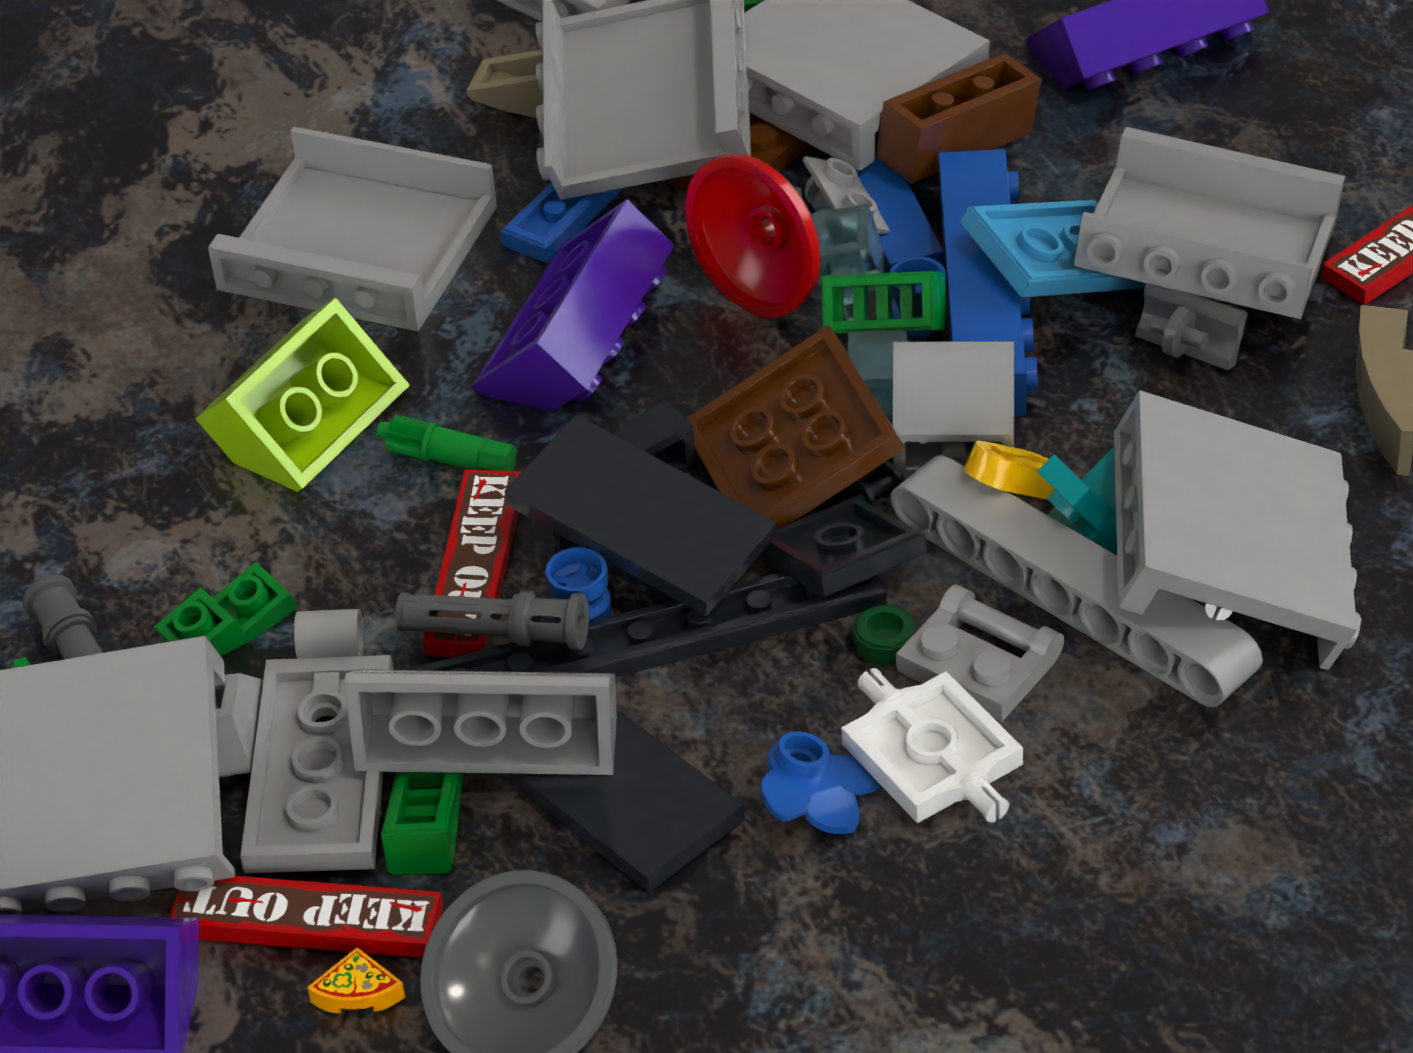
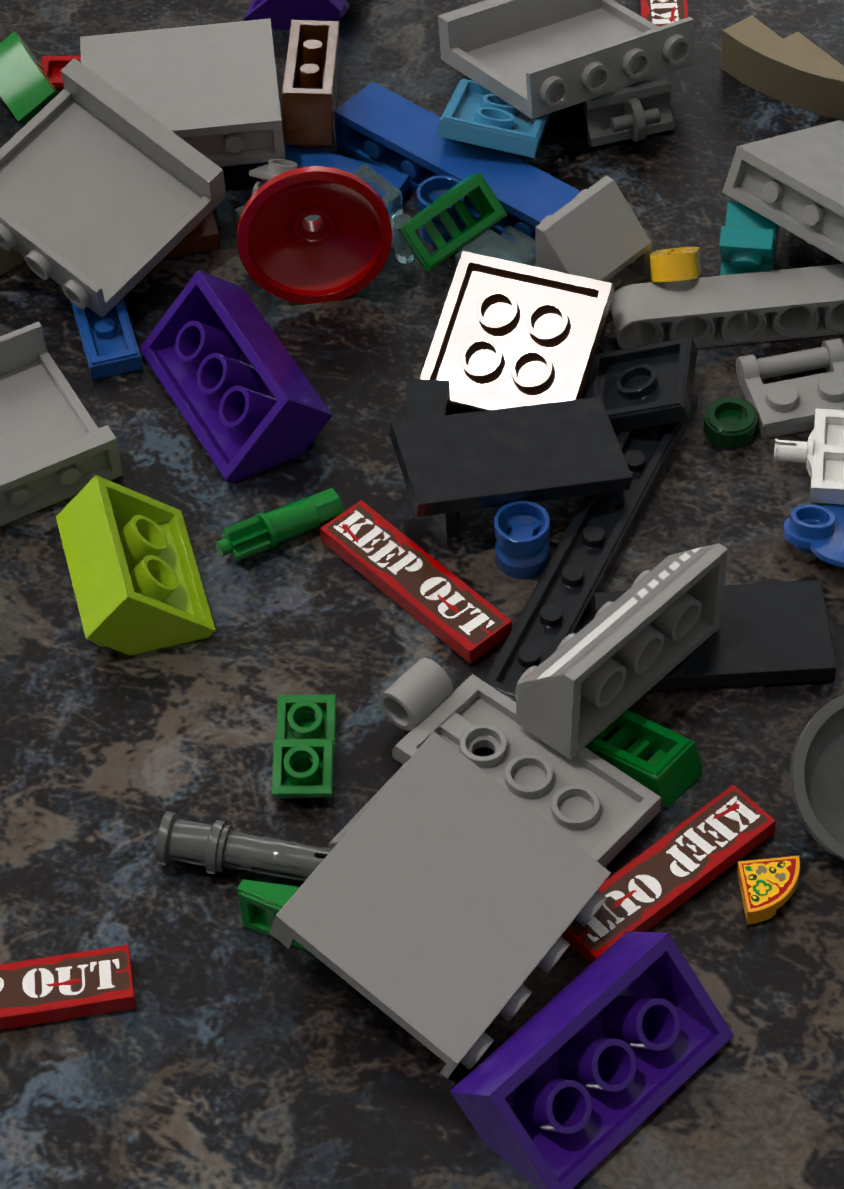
camera: 50 degrees left, 5 degrees up
(523, 624) = (529, 580): dark grey pin -> none

